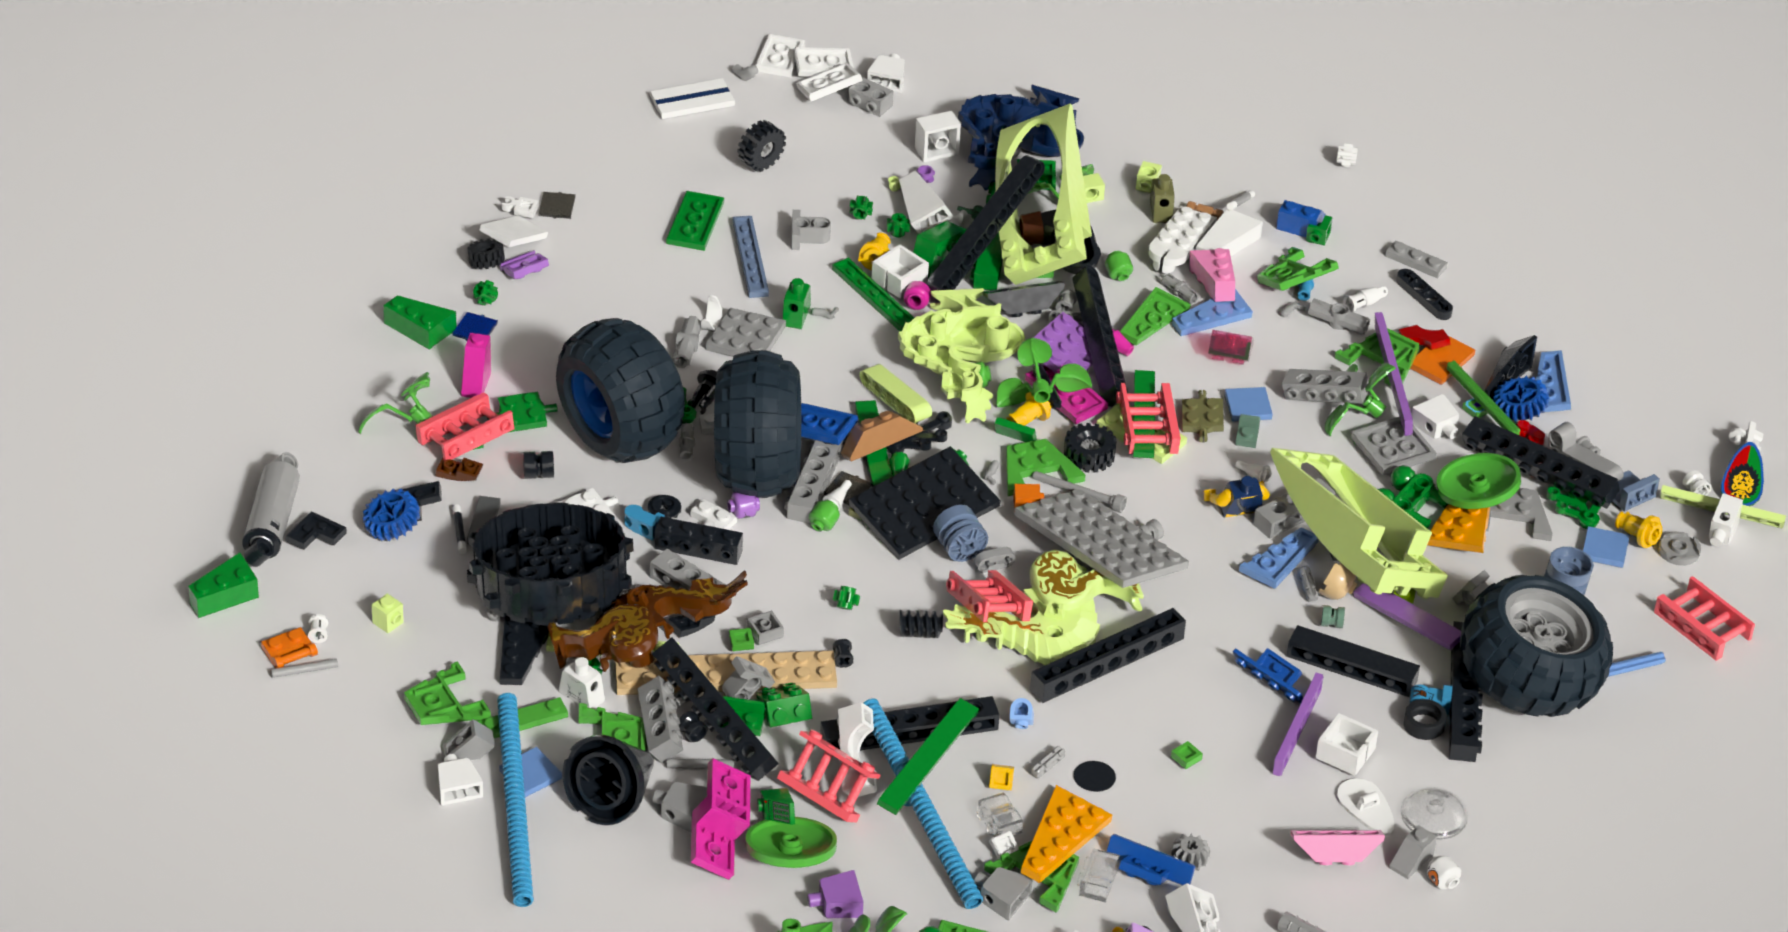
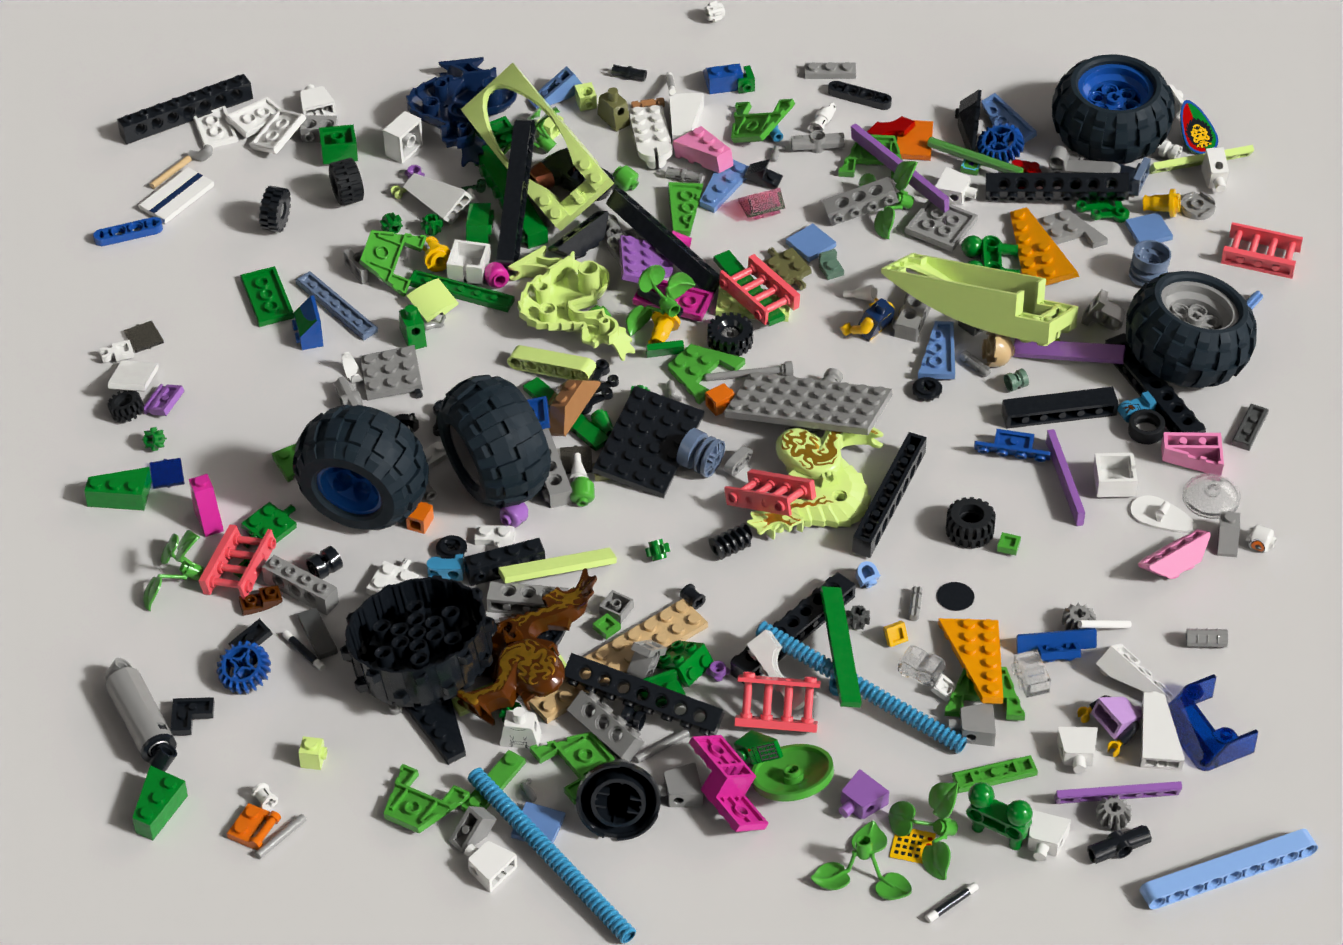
camera: 30 degrees left, 5 degrees up
(502, 472) = (300, 584): none -> light grey brick
(547, 740) = (528, 790): none -> light grey piece
(642, 113) = (128, 233): none -> blue beam
(659, 467) = (420, 518): none -> orange brick
(705, 76) = (170, 172): none -> tan bar
(705, 260) = (308, 325): none -> blue slope
(738, 564) = (557, 565): none -> yellowish green tile
(756, 31) = (184, 108): none -> black brick
(808, 723) = (718, 670): none -> medium lavender plate
(823, 227) = (383, 252): none -> bright green wing
(839, 289) = (432, 299): none -> yellowish green slope
(847, 150) = (346, 181): none -> black tyre
(873, 117) = (338, 143): none -> green slope
(979, 746) = (858, 617): none -> dark grey gear
(1125, 159) = (559, 87): none -> medium blue slope
(1164, 717) = (971, 534): none -> black tyre
(1209, 867) = (1104, 624): none -> white bar
(1213, 174) = (629, 72): none -> black pin
(1232, 578) = (931, 384): none -> black gear
(1255, 322) = (760, 174): none -> black slope
(1449, 761) = (1194, 451): none -> bright pink wedge
(1478, 481) = (1034, 222): bright green dish -> none
(1534, 771) = (1250, 427): none -> dark grey tile
(1659, 413) = (1113, 108): none -> black wheel

